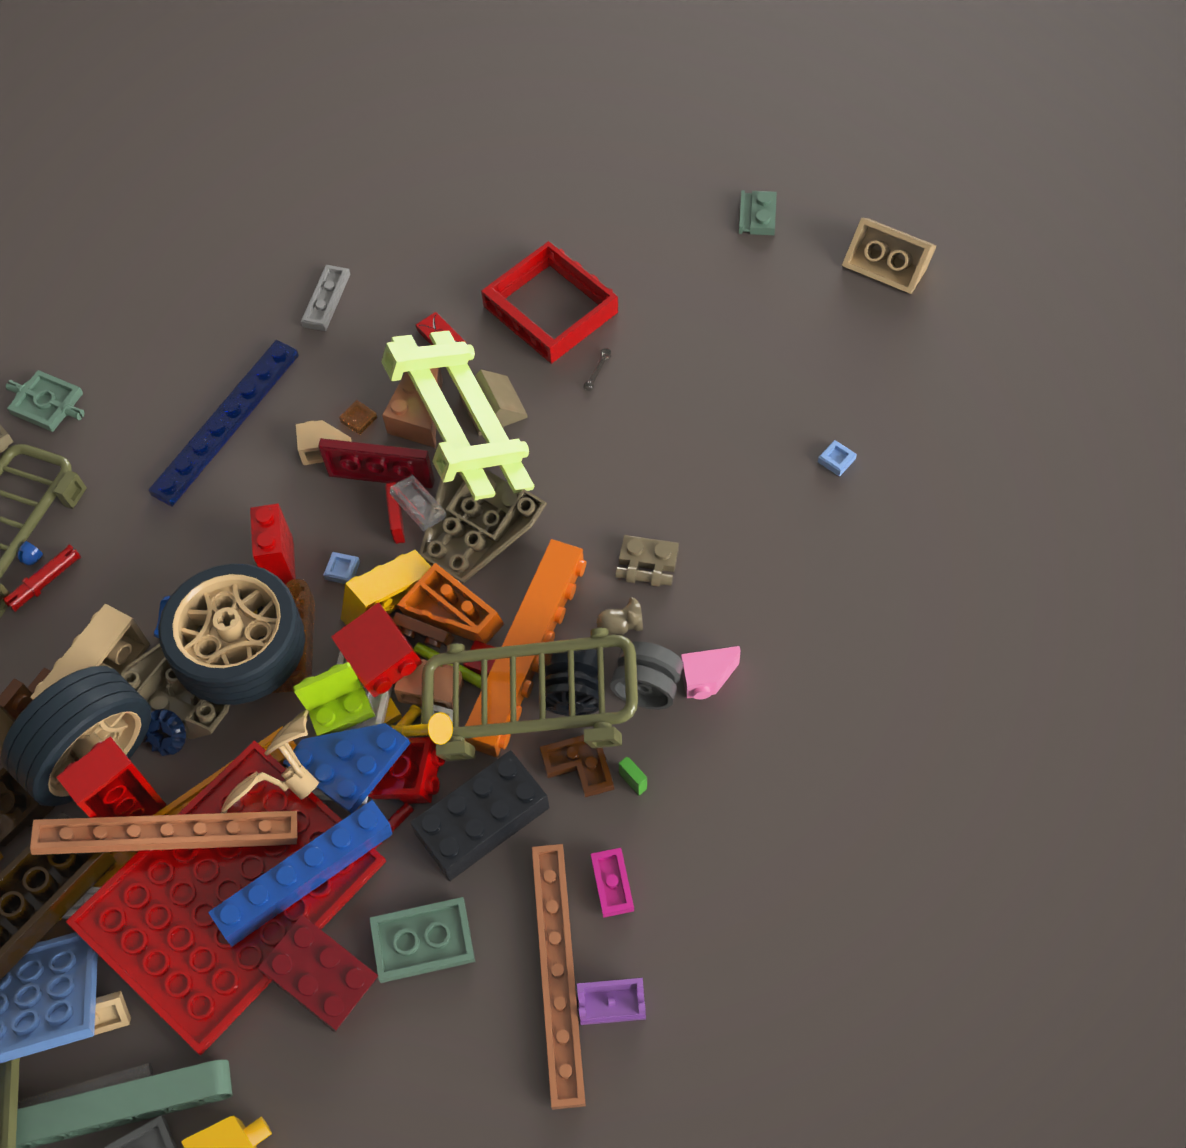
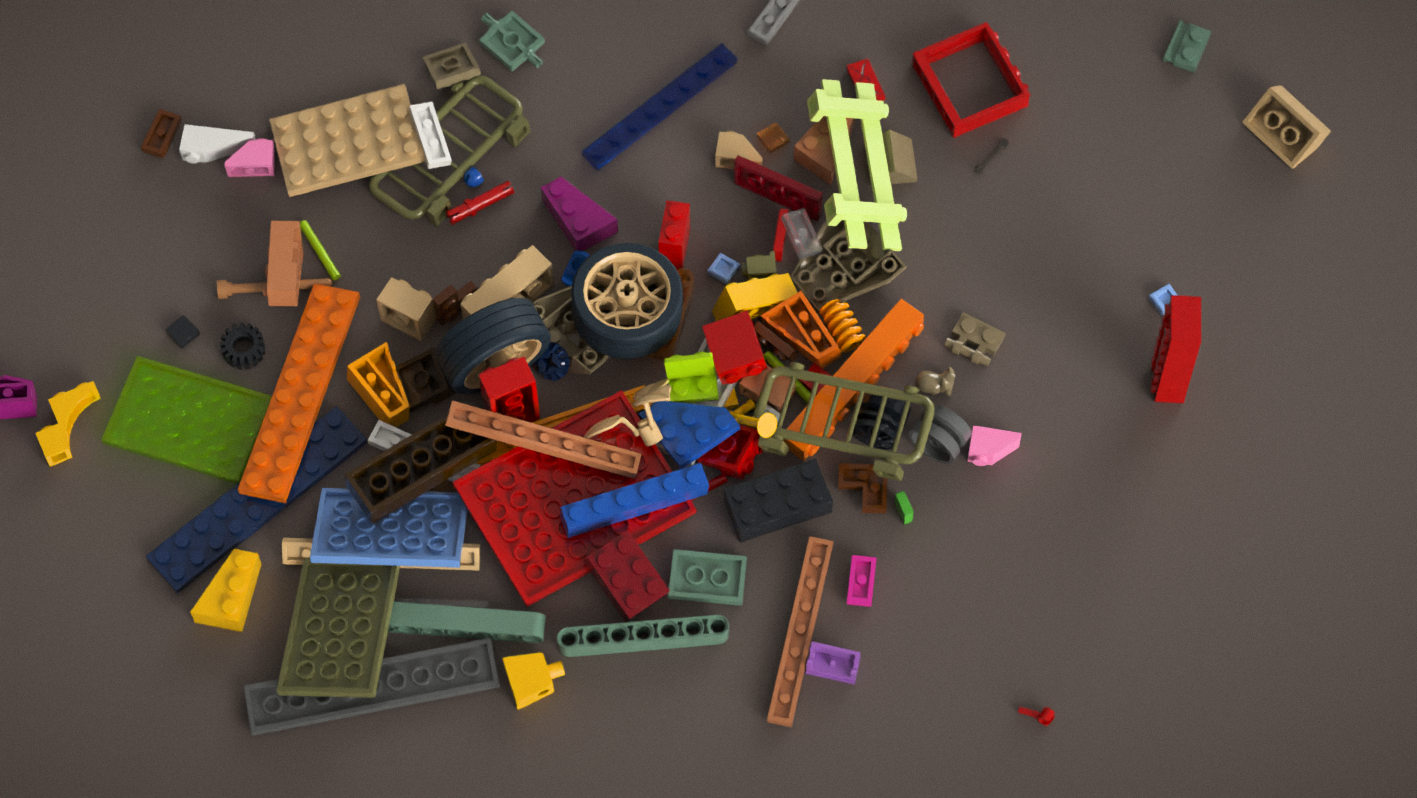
camera: 15 degrees right, 5 degrees up
(157, 557) = (577, 215): none -> magenta wedge
(343, 1044) = (631, 630): none -> sand green beam
(380, 551) = (759, 266): none -> olive brick
(494, 588) = (841, 325): none -> light orange piece
(886, 492) = (1176, 349): none -> red brick
(895, 983) = (1045, 717): none -> red hand

